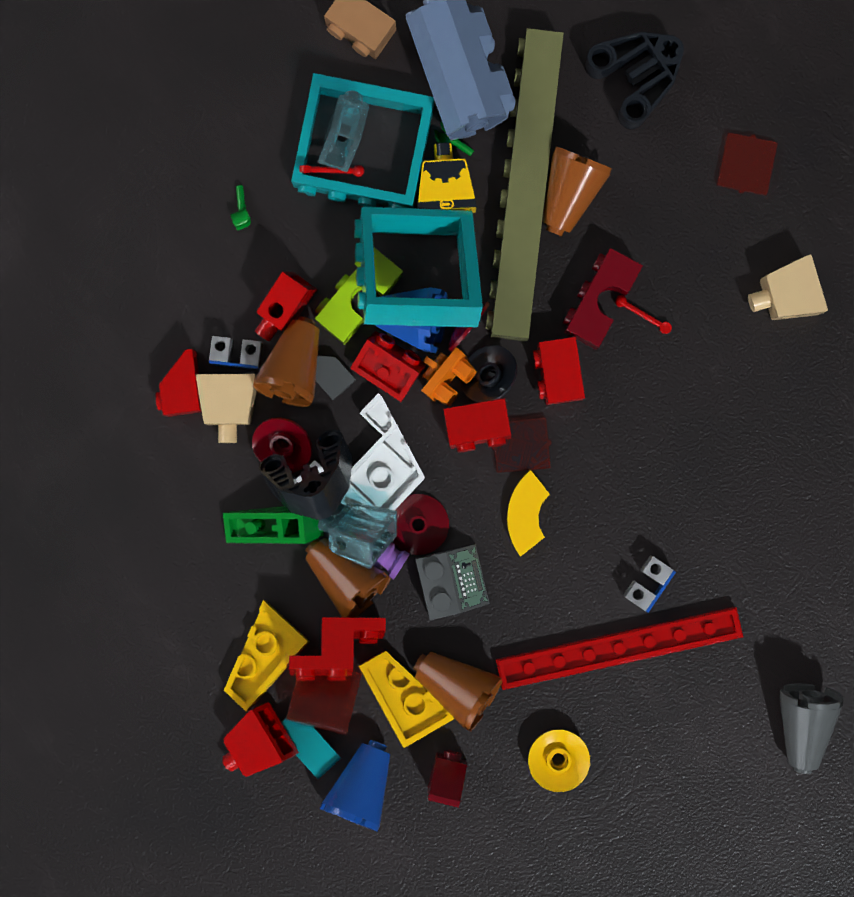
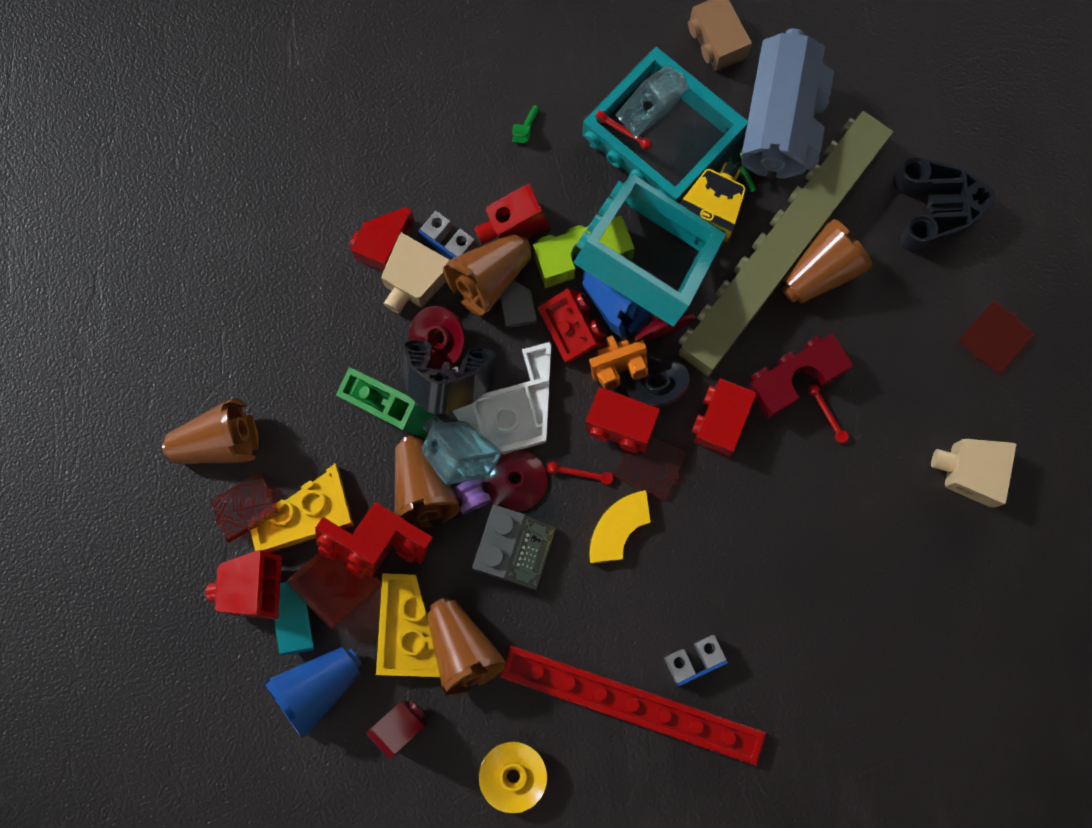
camera: 30 degrees right, 10 degrees down
(152, 638) = (214, 437): none -> dark orange cone
(212, 680) = (244, 507): none -> clear red piece
(491, 478) = (605, 478): none -> red hinge

